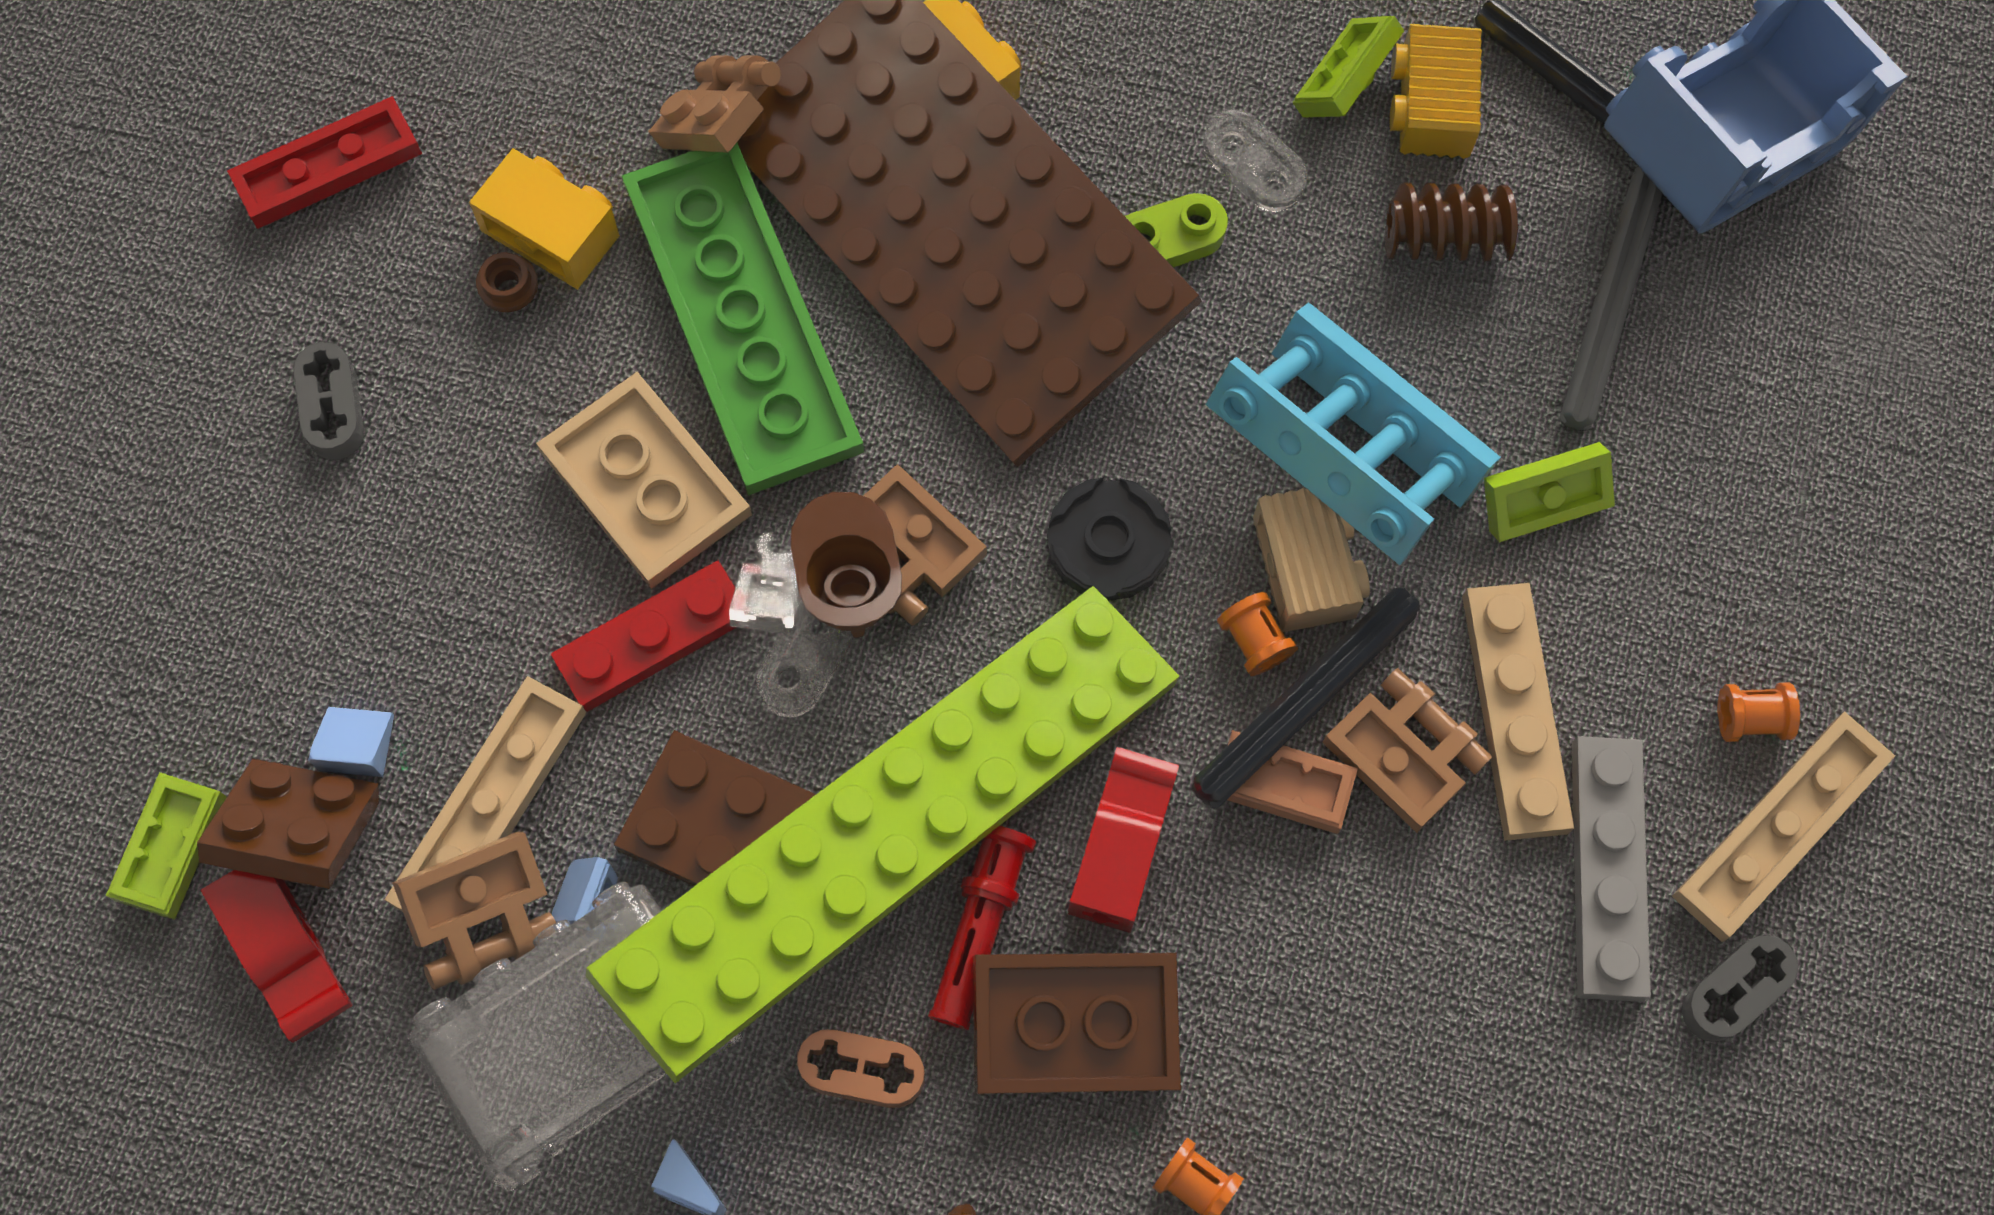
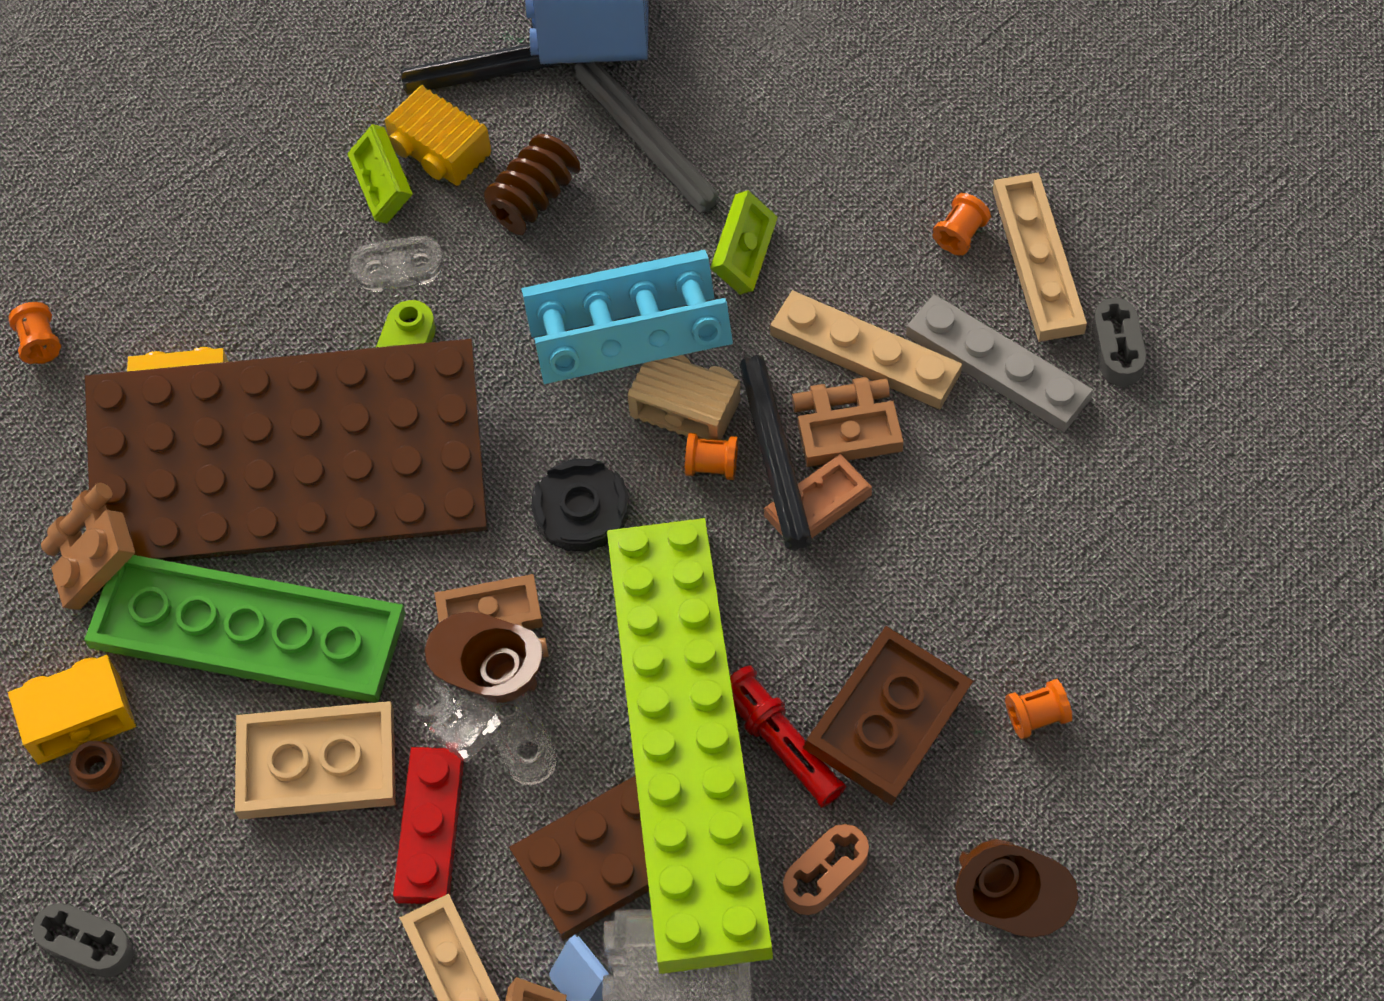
camera: 50 degrees left, 10 degrees down
(1123, 840) = (790, 618): red piece -> none

